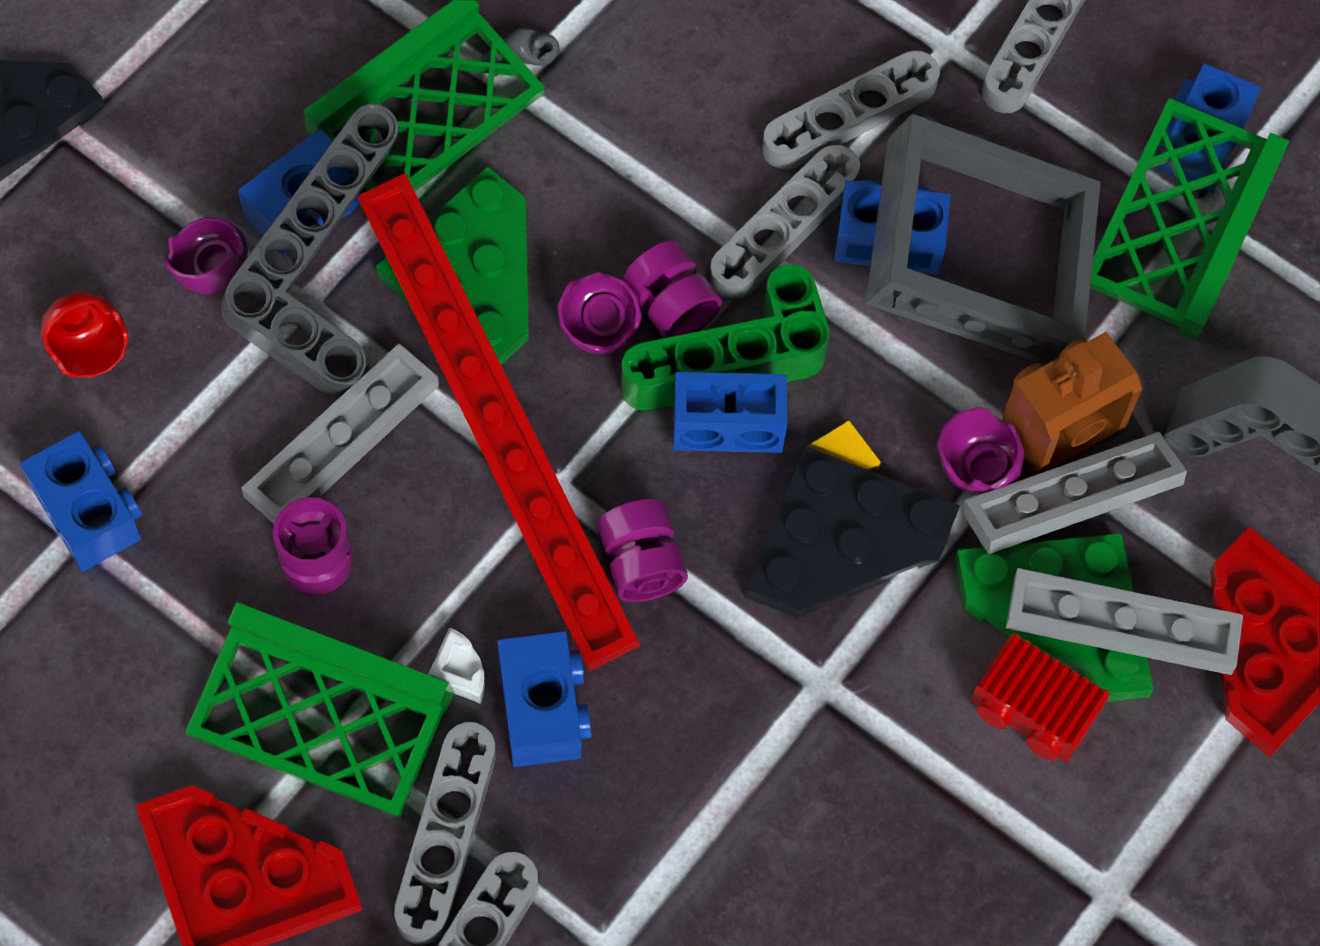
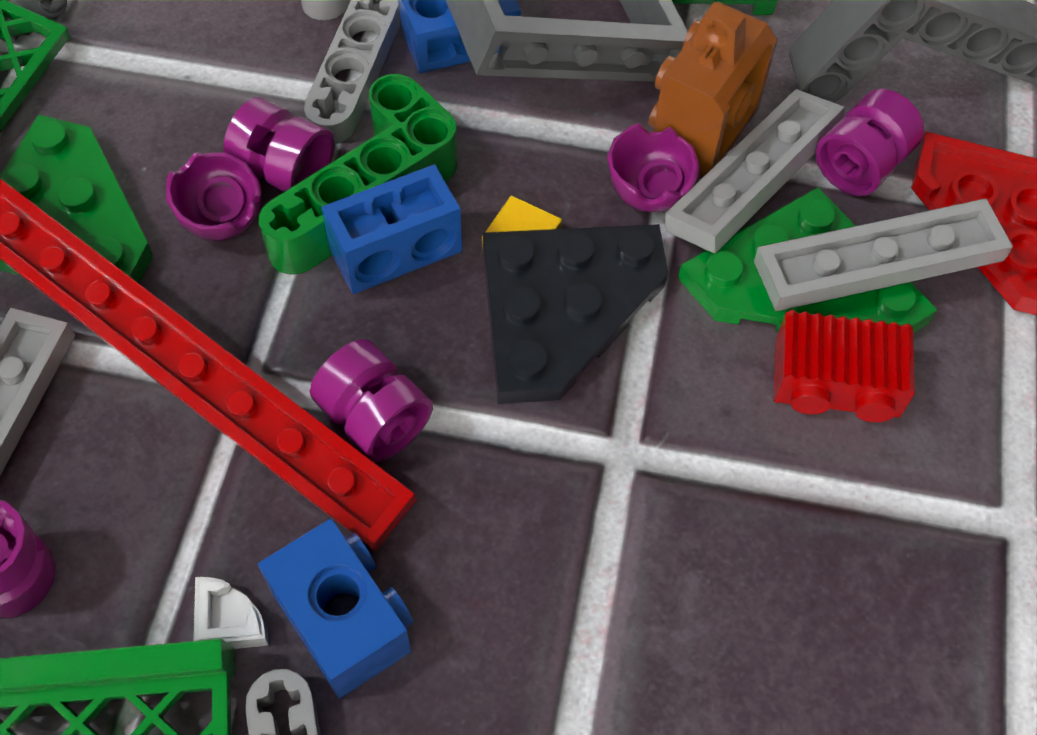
camera: 25 degrees left, 5 degrees down
(1196, 511) = (870, 142): none -> magenta wheel

